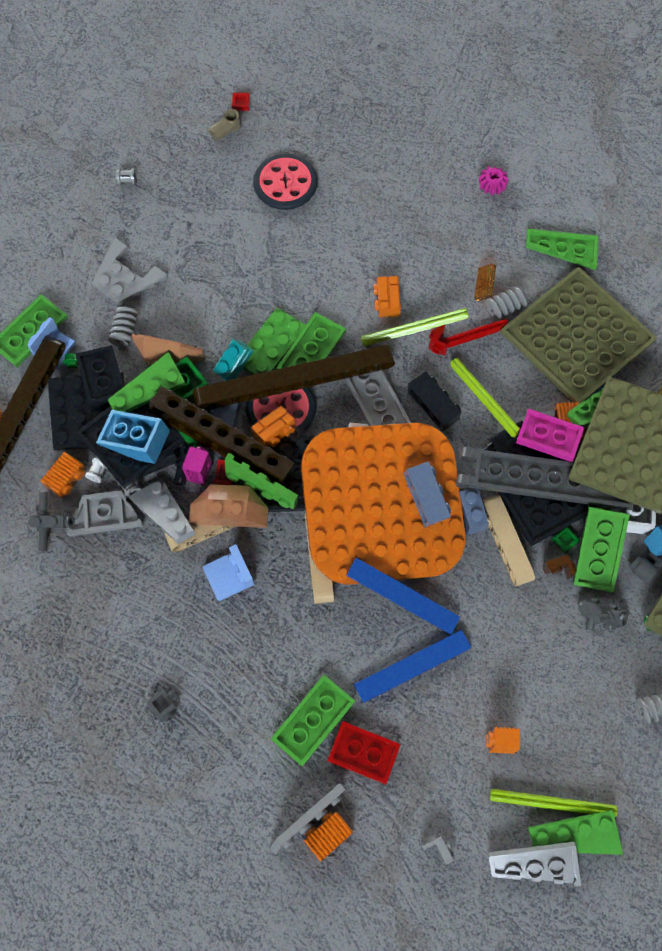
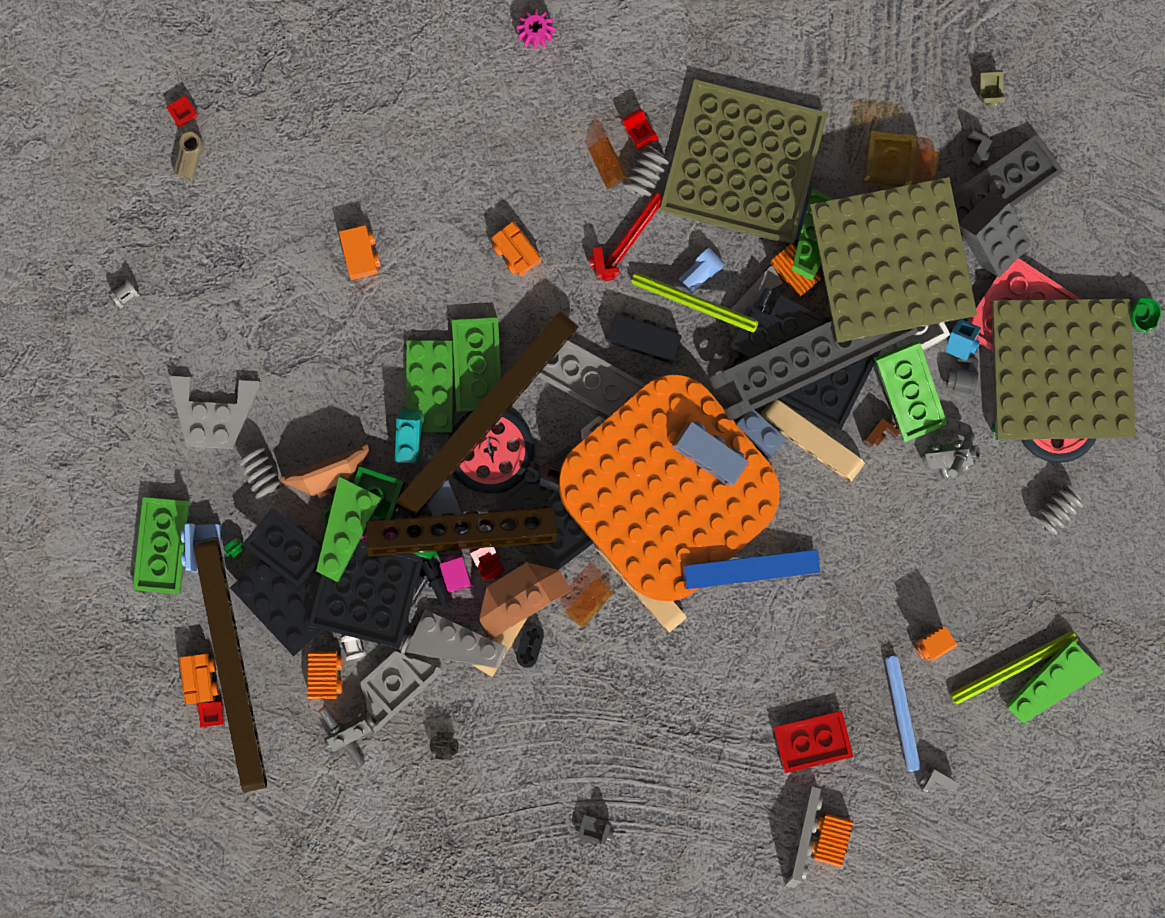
camera: 35 degrees left, 15 degrees up
(104, 574) = (444, 745): none -> clear smoke gear
(134, 435) = (374, 592): dark azure slope -> none
(210, 545) = (524, 644): none -> black beam
(228, 574) = (564, 662): light blue bracket -> none
(259, 482) = (534, 551): bright green wing -> none
(273, 427) = (504, 482): orange brick -> none
(273, 547) = (589, 603): none -> clear orange plate
(286, 201) = (287, 157): wedge -> none
(286, 238) = (359, 252): none -> orange brick
(313, 720) = (745, 745): bright green plate -> none
(412, 666) = (803, 628): blue tile -> none
(414, 327) = (570, 270): lime axle -> none
(445, 779) = (902, 713): none -> light blue axle
(508, 382) = (705, 266): none -> light blue piece
(520, 273) = (639, 129): none -> red bracket
(538, 863) = (1041, 726): light grey wing -> none
(550, 435) = (790, 306): dark pink plate -> none
(565, 540) = (869, 399): green tile -> none
(570, 247) = (668, 59): bright green wing -> none

